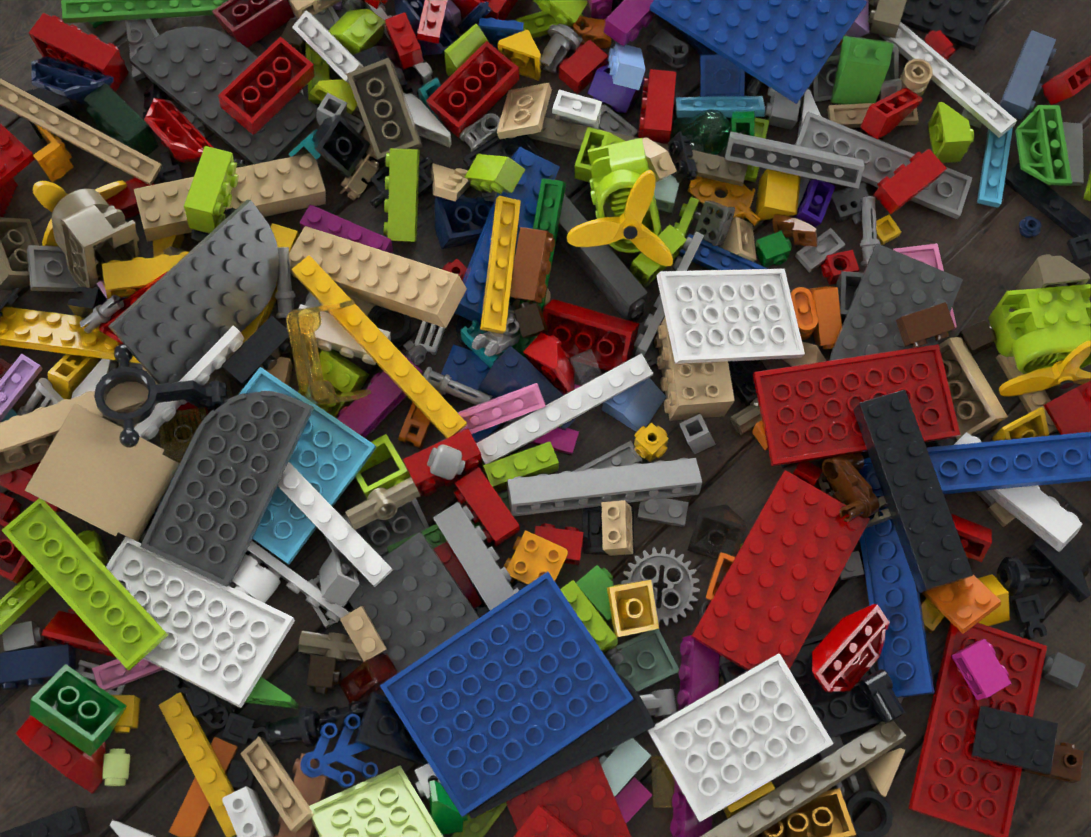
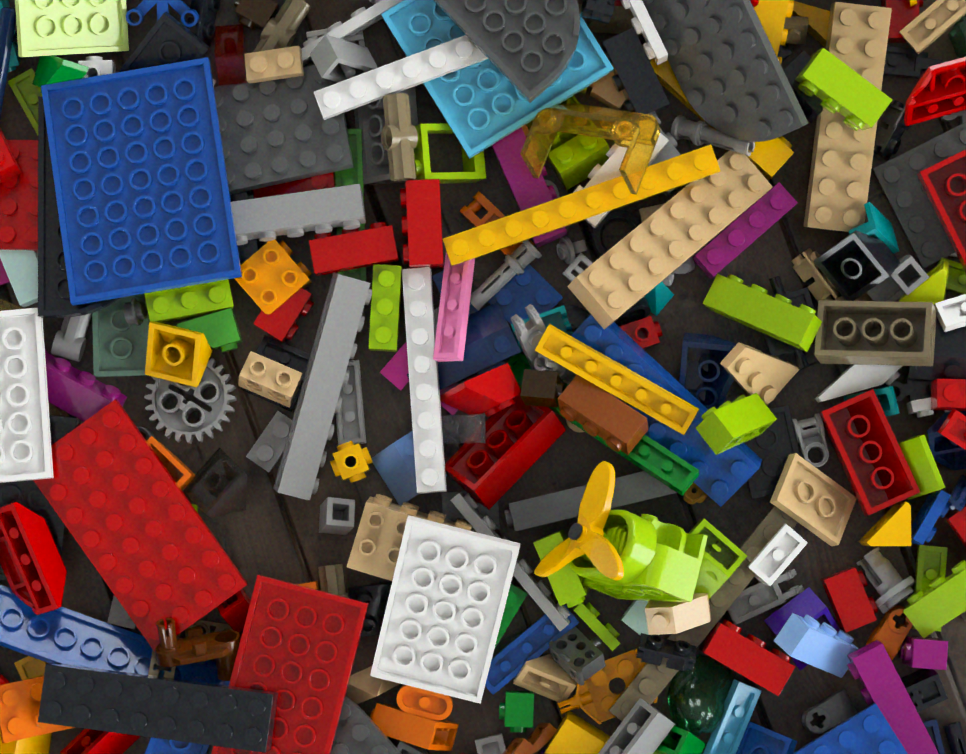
camera: 110 degrees right, 15 degrees up
(446, 462) = (410, 220): light grey head -> none

